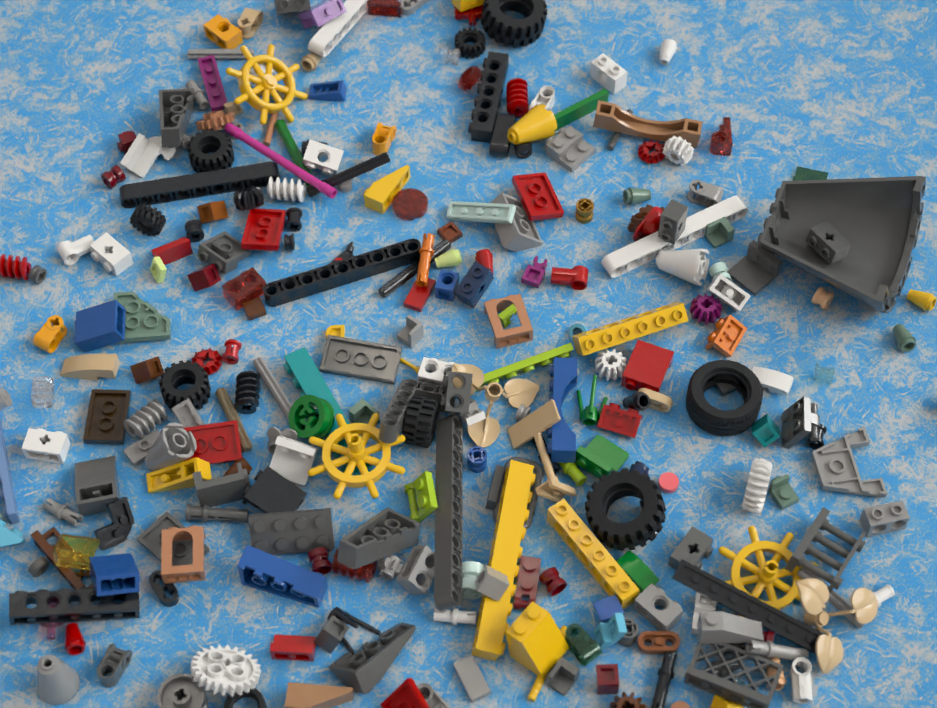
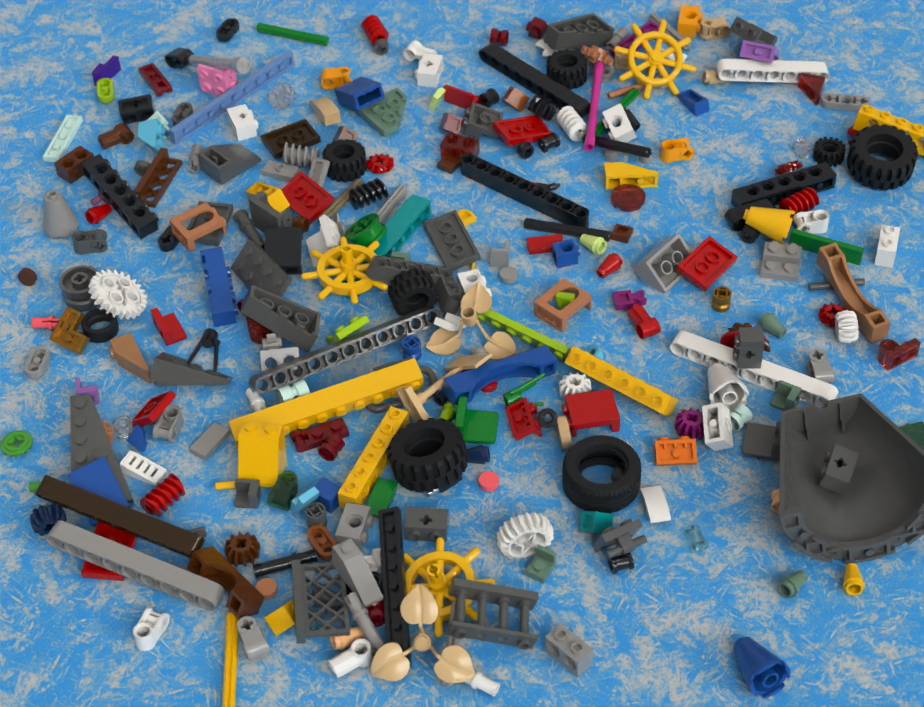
camera: 60 degrees right, 10 degrees down
(74, 551) = (162, 175): clear yellow panel -> none
(114, 574) = (154, 199): blue brick -> none
(121, 525) = (205, 188): black plate -> none
(141, 155) = (529, 37): white panel -> none
(147, 220) = (473, 69): black tyre -> none
(171, 447) = (281, 171): light grey cone -> none
(234, 354) = (398, 170): red bush -> none
(331, 634) = (190, 337): dark grey panel -> none
(426, 253) = (570, 228): orange pin -> none
(437, 340) = (508, 275): none -> light grey tile
(462, 393) = (455, 300): dark grey brick -> none
(474, 284) = (577, 265): dark blue brick -> none
(481, 212) = (651, 234): light aqua tile -> none
(491, 583) = (290, 398): light grey panel -> none
(607, 679) = (261, 521): dark red panel -> none
(838, 468) = (603, 591): light grey wing -> none

